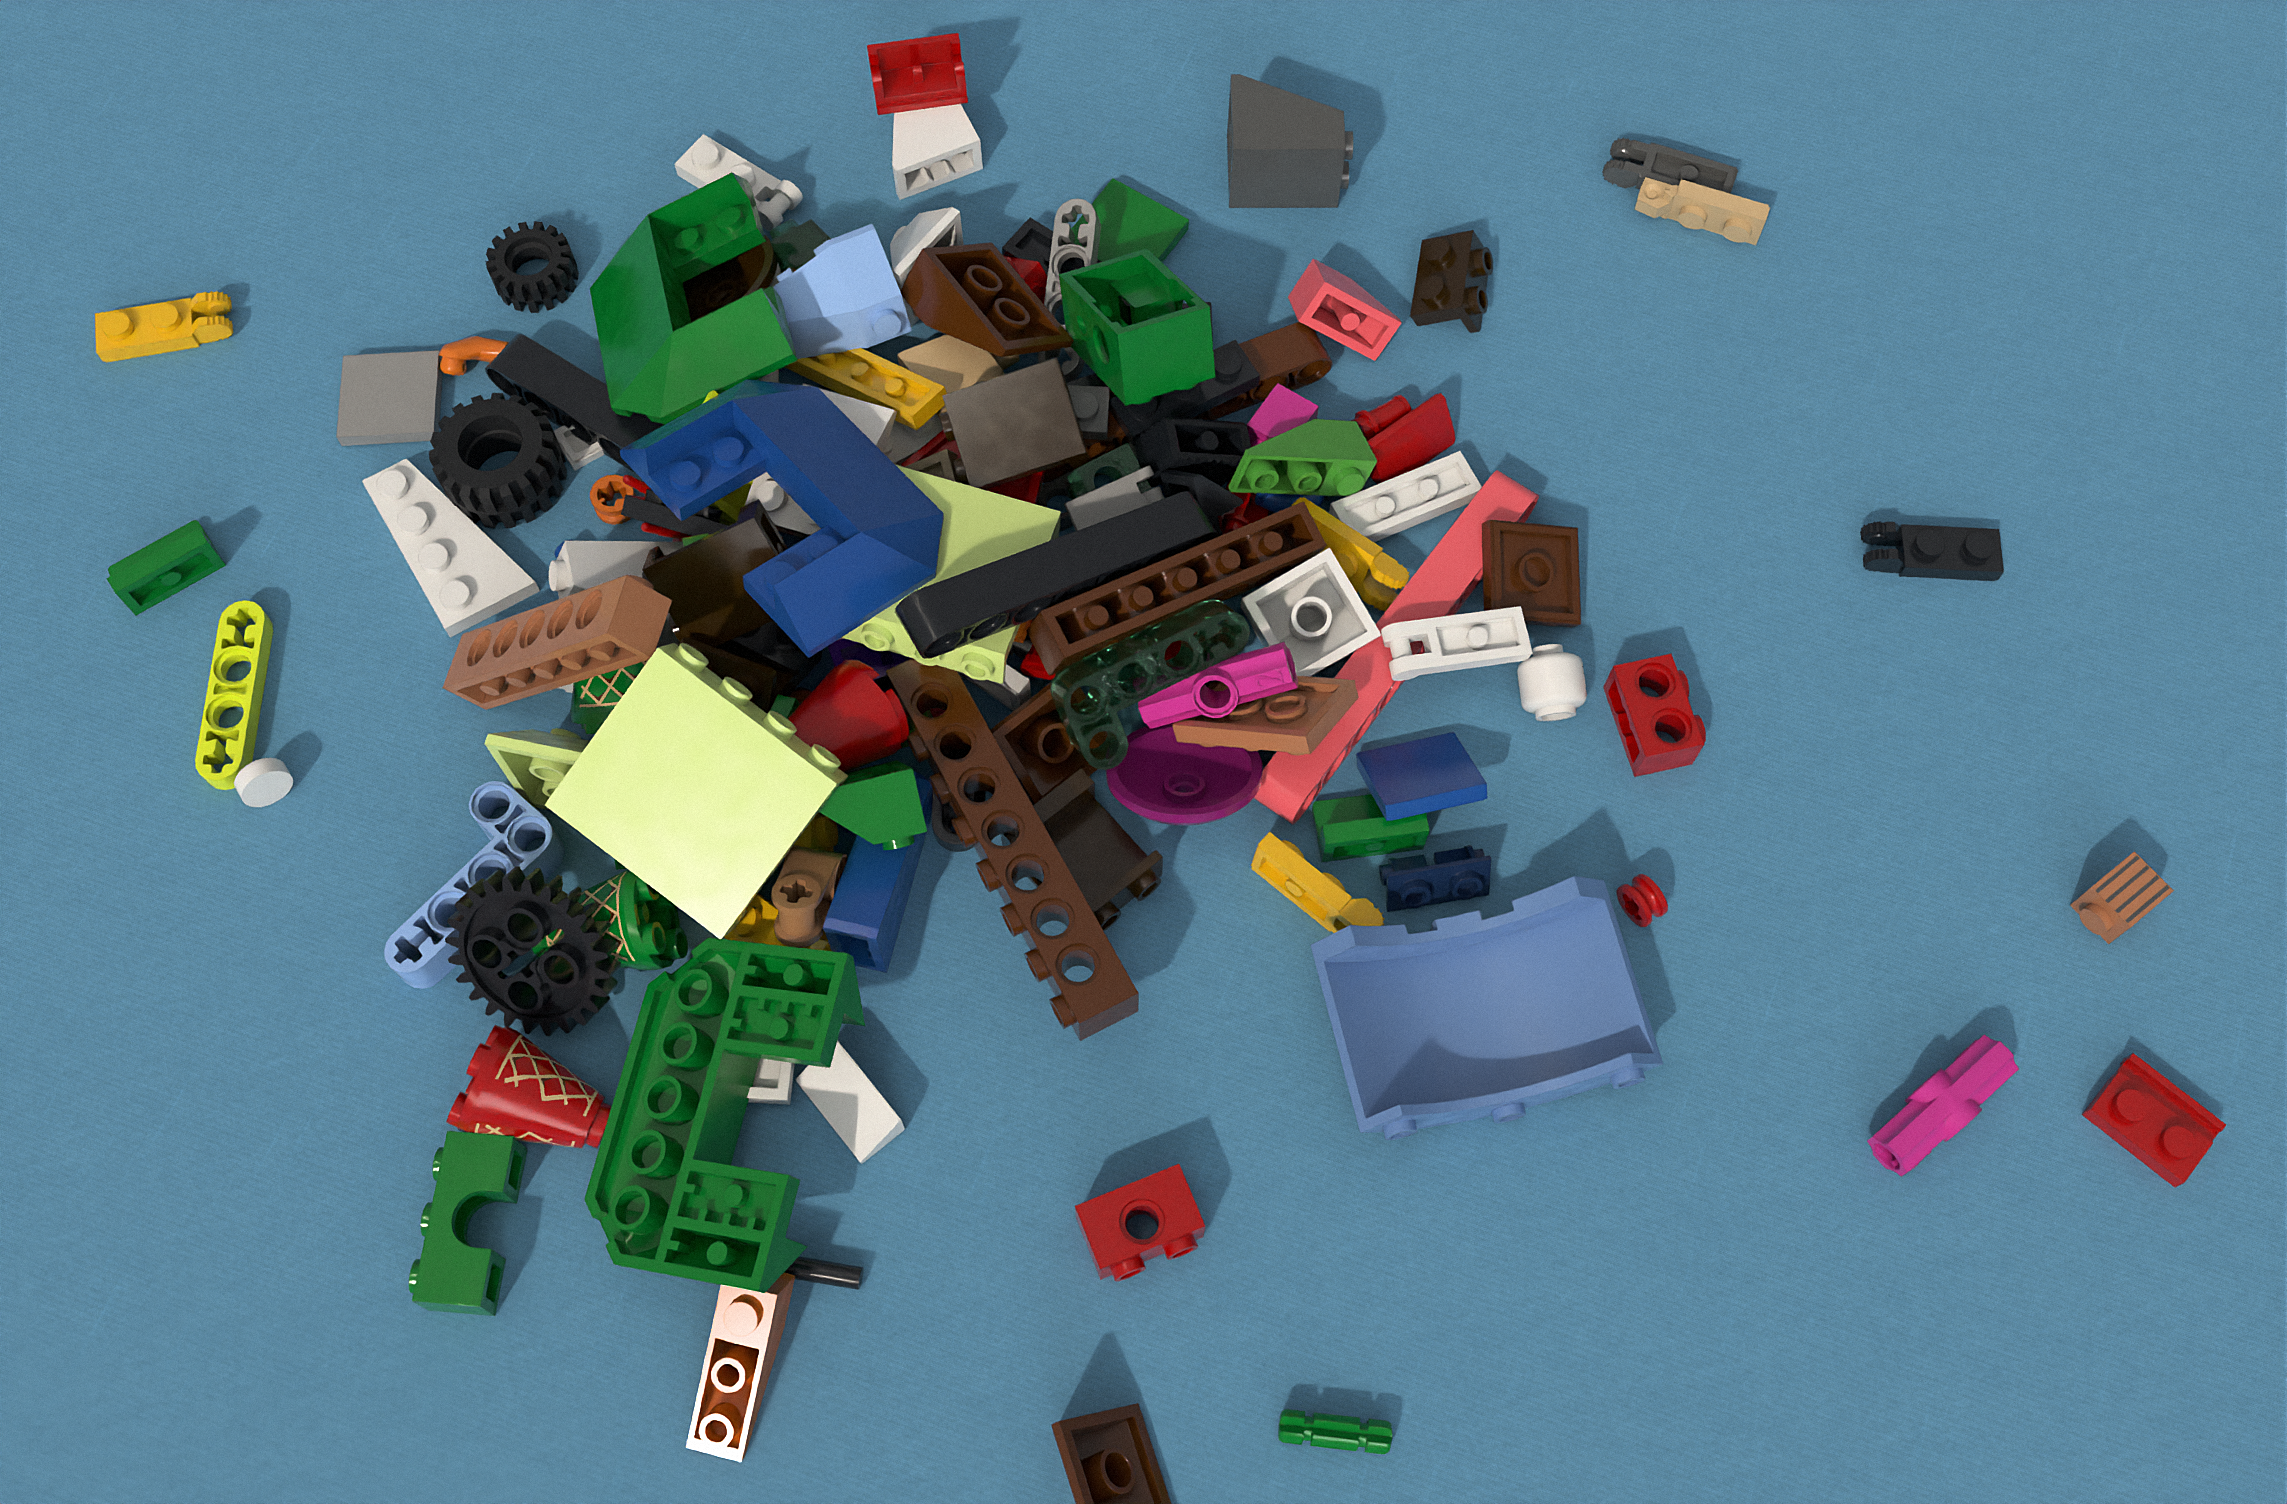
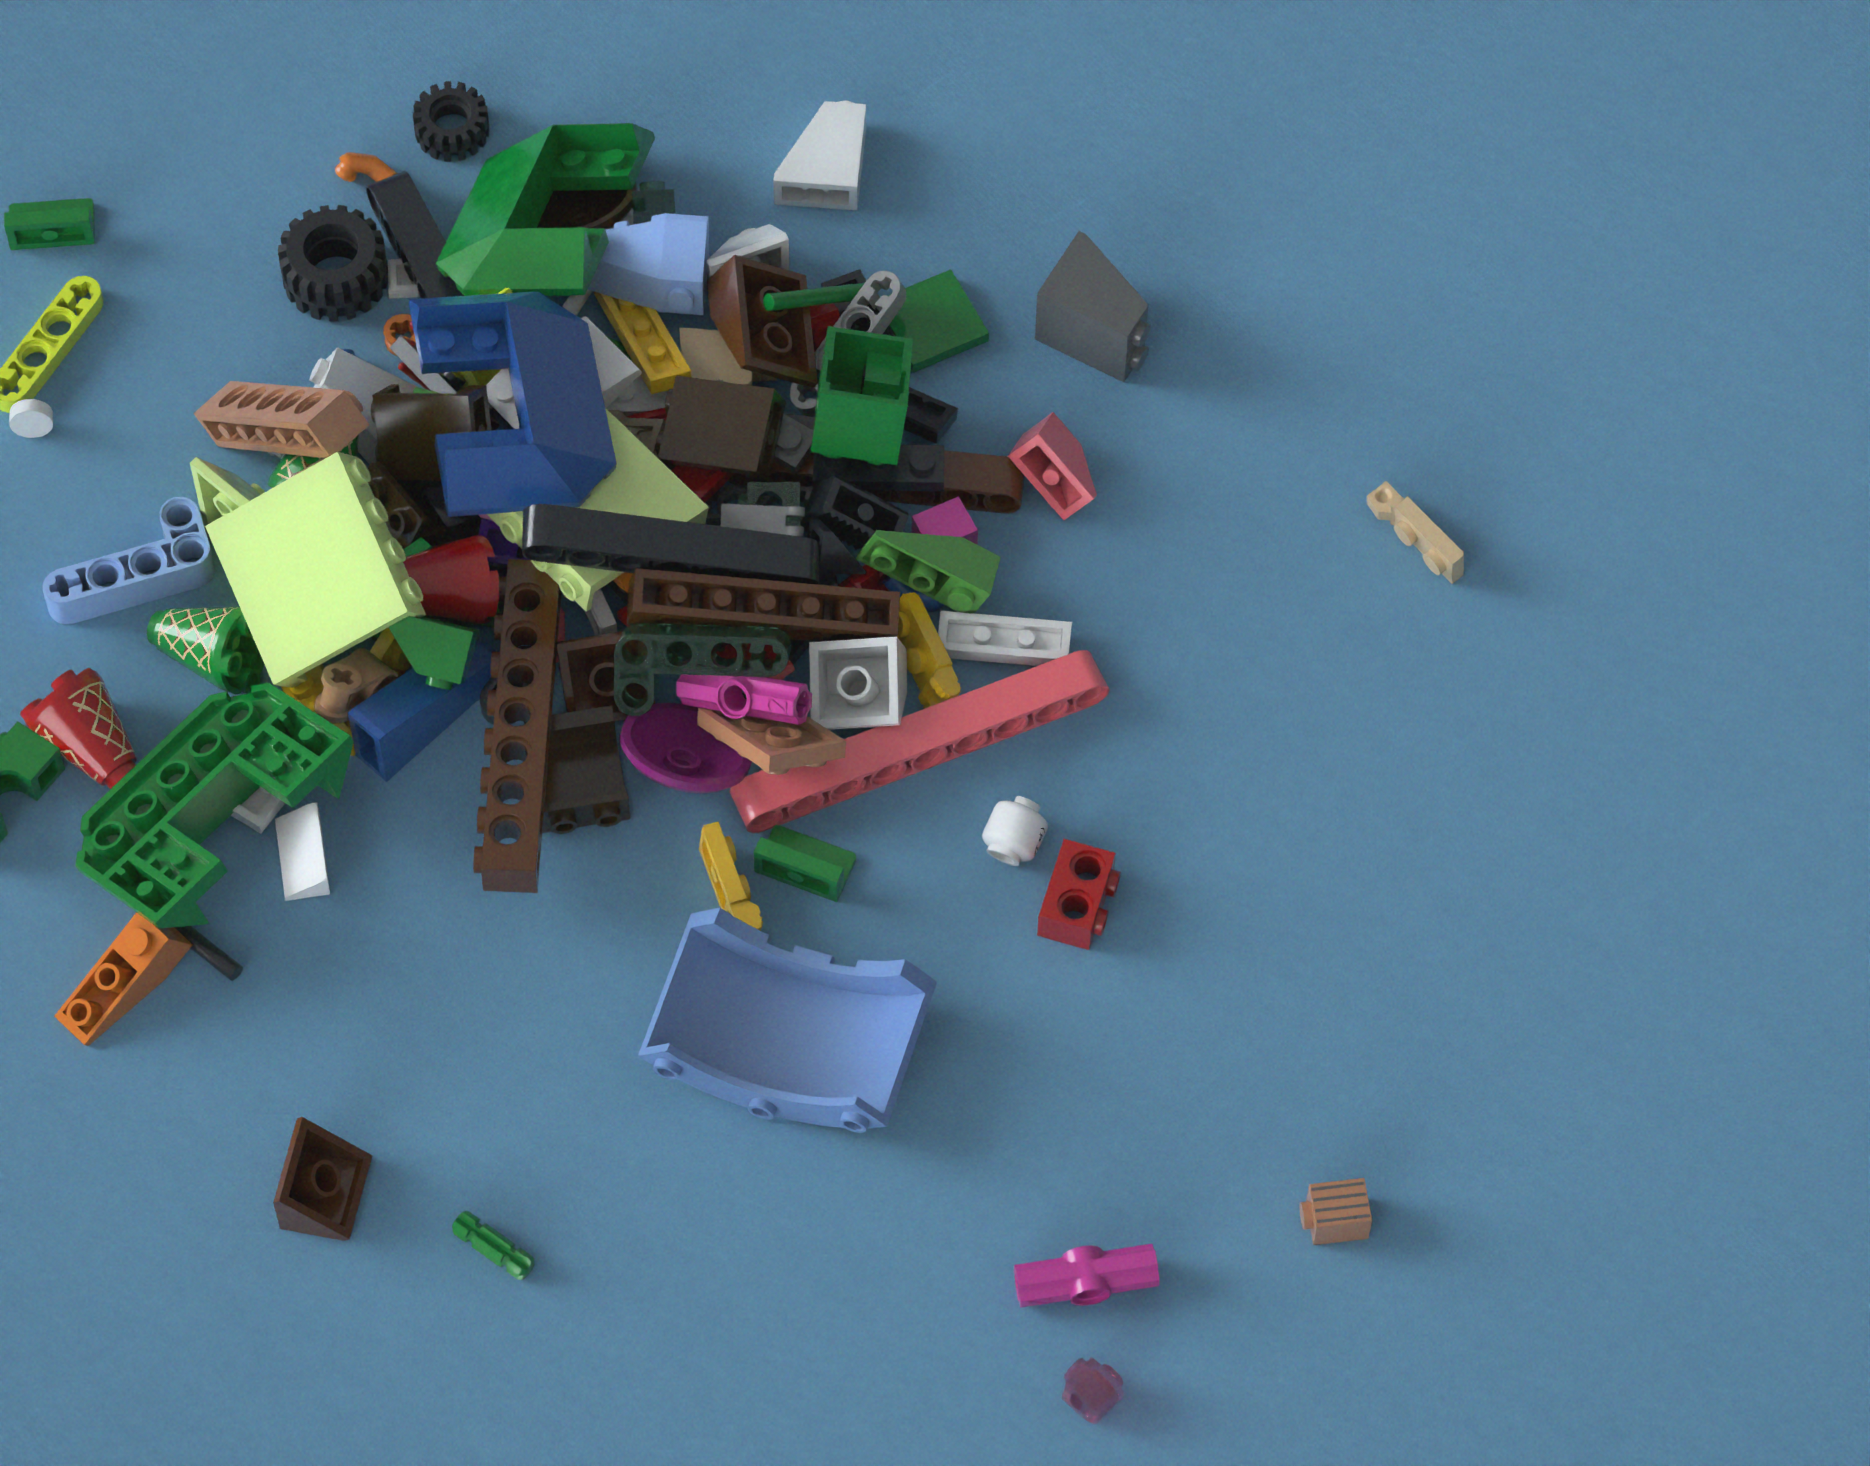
camera: 30 degrees right, 5 degrees down
(162, 326) = (150, 34): yellow hinge -> none
(389, 398) = (284, 173): light grey tile -> none
(448, 553) = (258, 318): white wing -> none
(510, 917) = (136, 597): black gear -> none
(710, 161) = (642, 105): white plate -> none
(917, 73) = (836, 110): red hinge -> none
(1015, 258) = (811, 297): none -> green bar
(1160, 1196) = (431, 1020): red brick -> none
(1381, 417) = (1029, 568): red pin -> none
(1412, 440) = (1041, 594): red slope -> none
(1421, 776) = (862, 843): blue tile -> none
(1452, 280) = (1168, 488): dark brown bracket -> none
(1454, 877) = (816, 923): dark blue hinge -> none
(1457, 642) = (952, 758): white plate -> none
(1532, 569) = (1056, 741): reddish brown tile -> none
(1642, 900) = (968, 1019): red bush -> none
(1664, 166) = (1420, 484): dark grey hinge -> none
(1934, 551) = (1402, 893): black hinge -> none
(2037, 1225) = (1092, 1389): none -> clear pink plate
(2154, 1120) = (1243, 1375): red plate -> none

